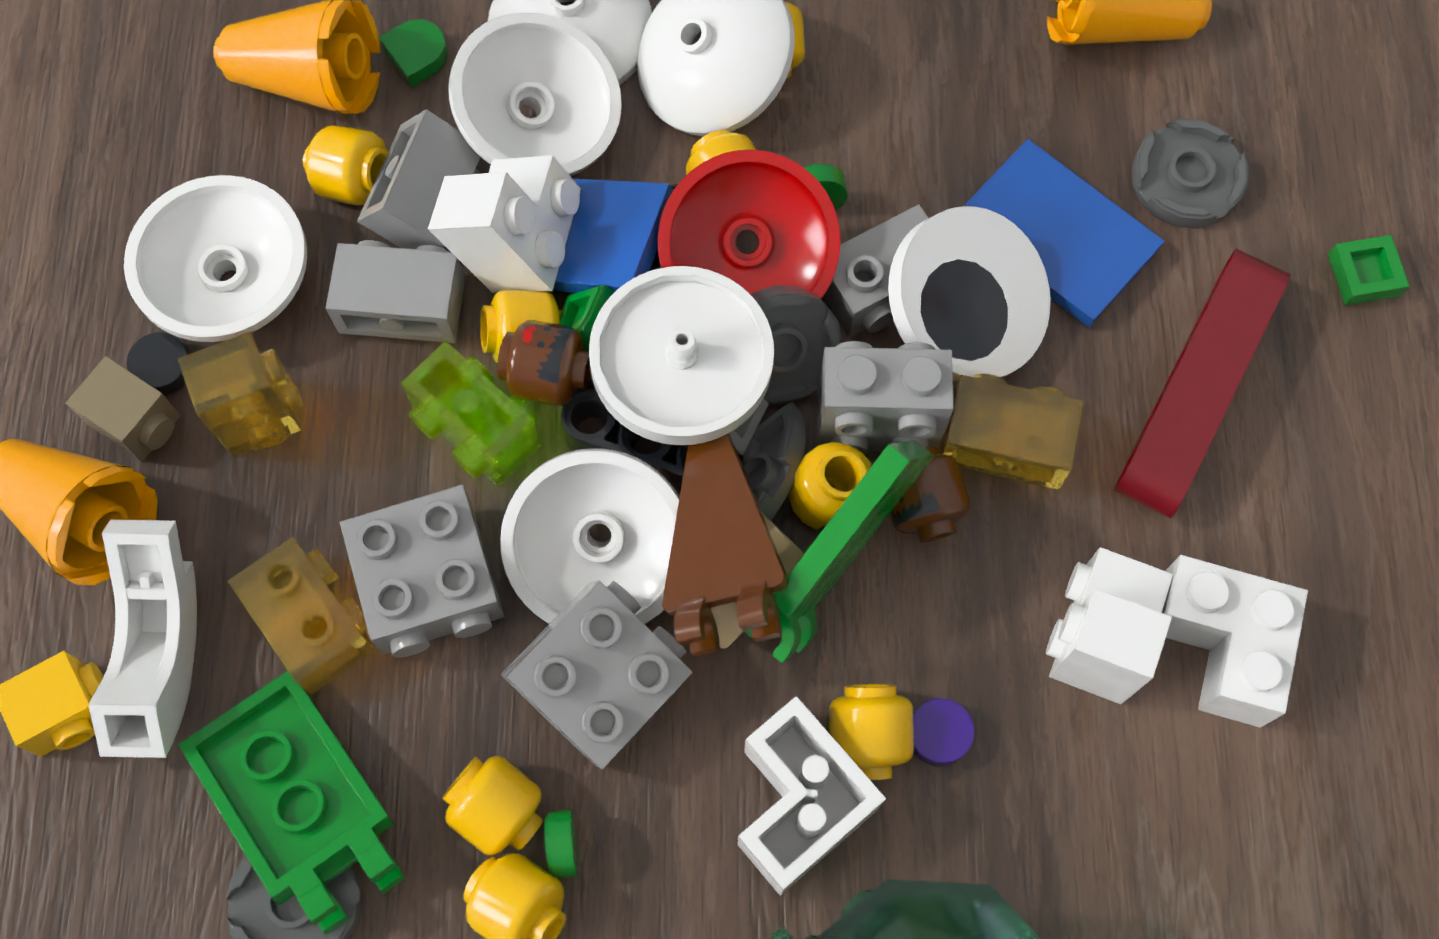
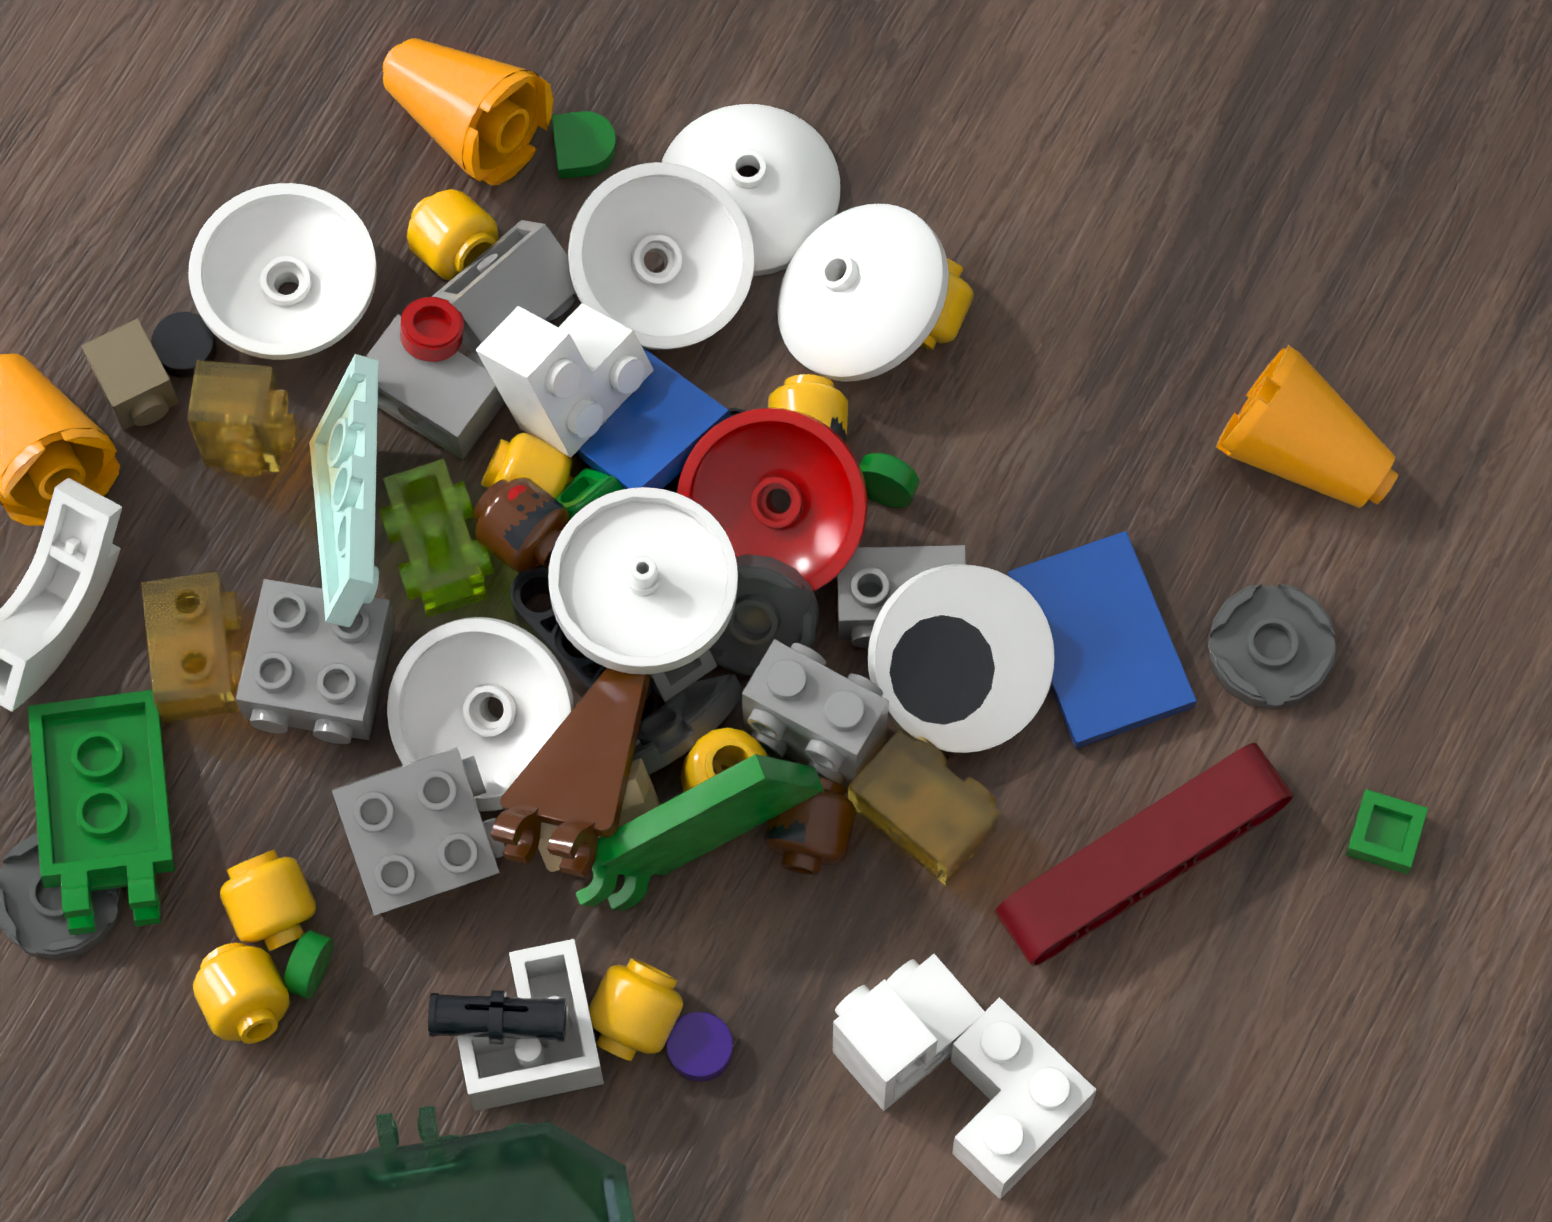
camera: 30 degrees right, 0 degrees up
(375, 239) = (431, 329): none -> red tile
(375, 412) = (345, 492): none -> light aqua wing
(775, 804) = (497, 1017): none -> black pin

